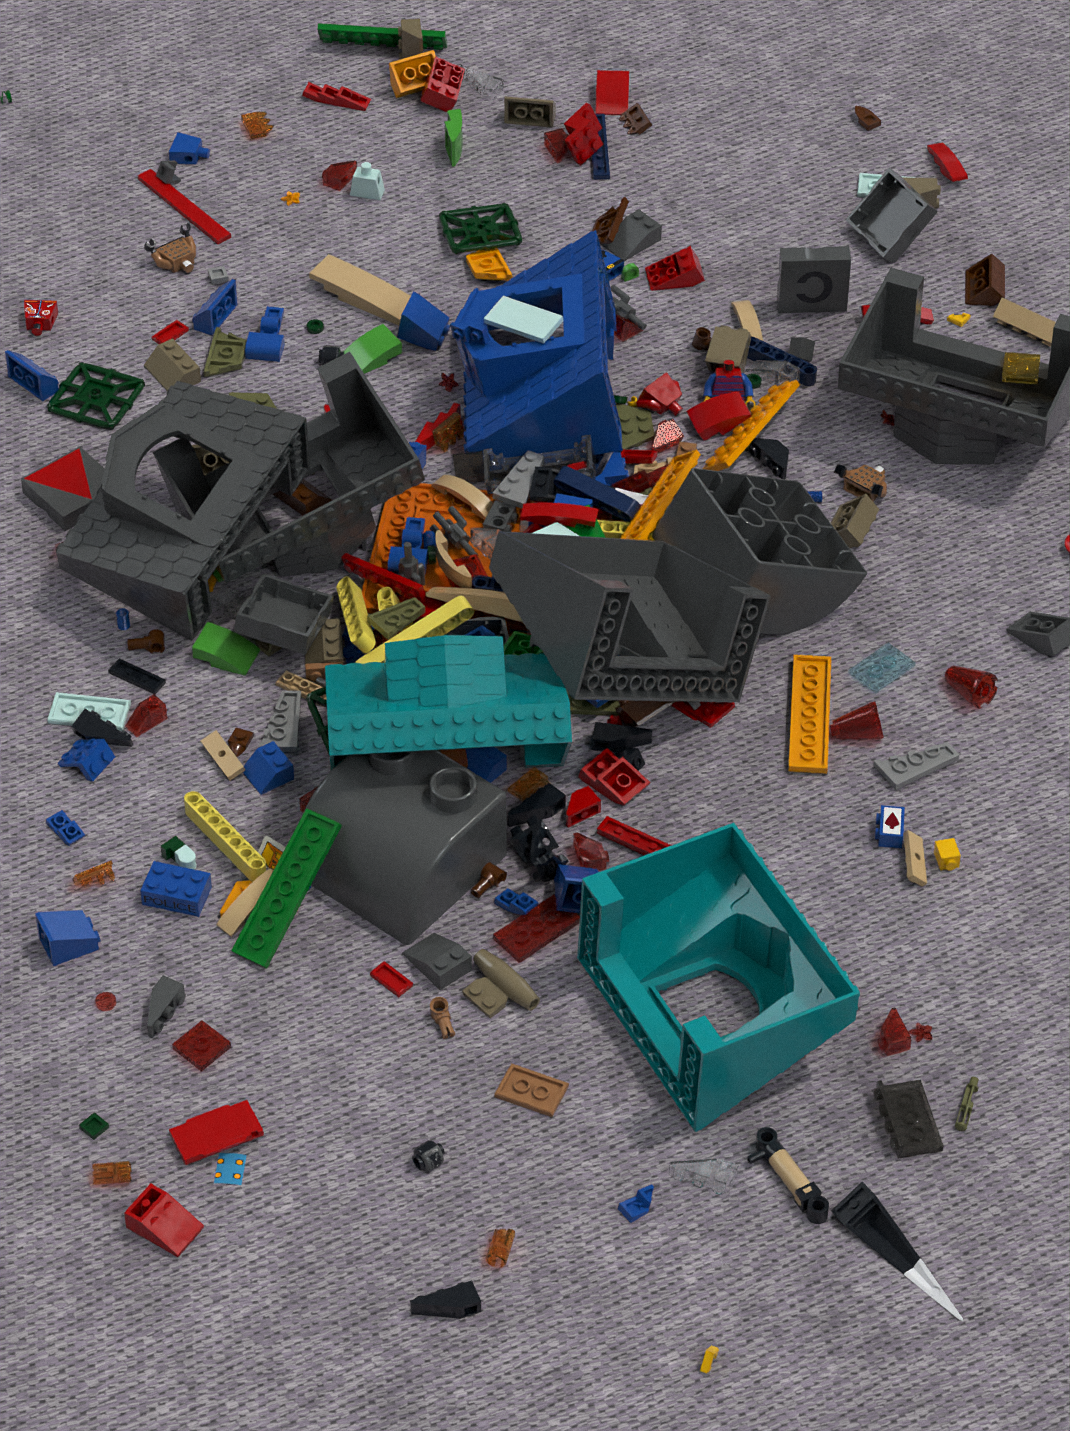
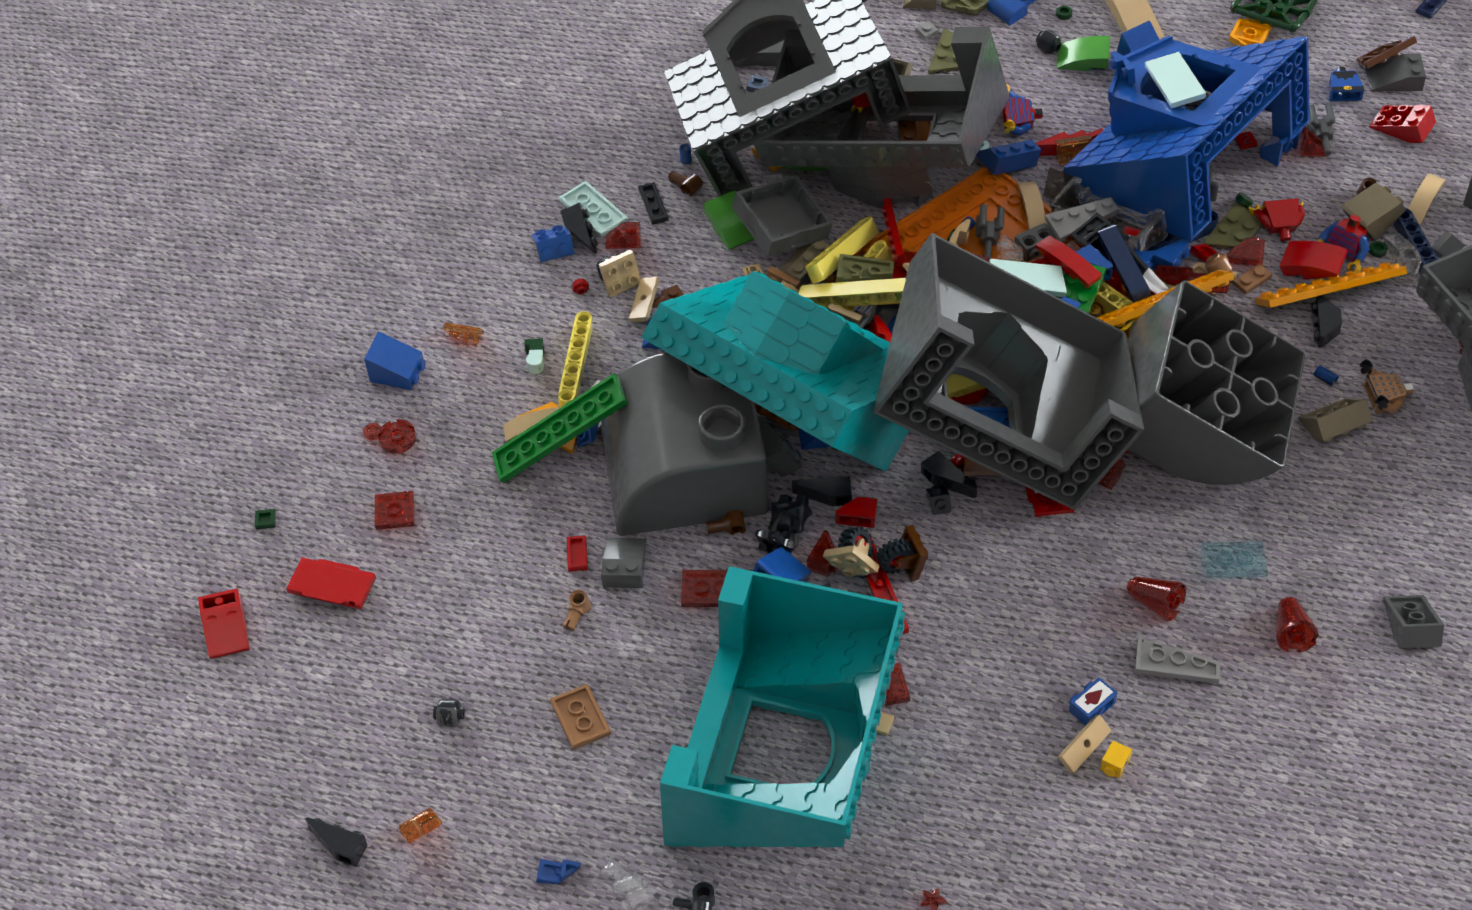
camera: 45 degrees right, 5 degrees up
(65, 828) = (484, 284): blue slope -> none
(111, 1172) = (237, 562): clear orange arm -> none
(124, 986) = (400, 444): none -> clear red plate
(153, 778) = (580, 286): none -> red plate
(164, 1000) = (403, 458): dark grey slope -> none
(176, 888) = (503, 379): blue brick -> none
(177, 745) = (618, 272): none -> tan plate
(230, 1168) = (315, 618): dark azure sticker -> none
(410, 568) = (915, 236): dark grey plant -> none
(414, 534) = (949, 219): blue plate -> none
(498, 985) = (645, 615): dark tan plate -> none
(515, 903) = (727, 555): blue slope -> none
(528, 784) = (842, 467): clear orange plate -> none
(613, 777) = (909, 505): red slope -> none
(619, 834) = (854, 553): none -> tan plate
(629, 272) = (1364, 102): bright green tile -> none
(655, 810) = (904, 554): none -> plate
(658, 457) = (1218, 262): none -> medium nougat head
(810, 714) = (1127, 558): light orange plate -> none
(894, 1035) = (902, 883): clear red slope -> none

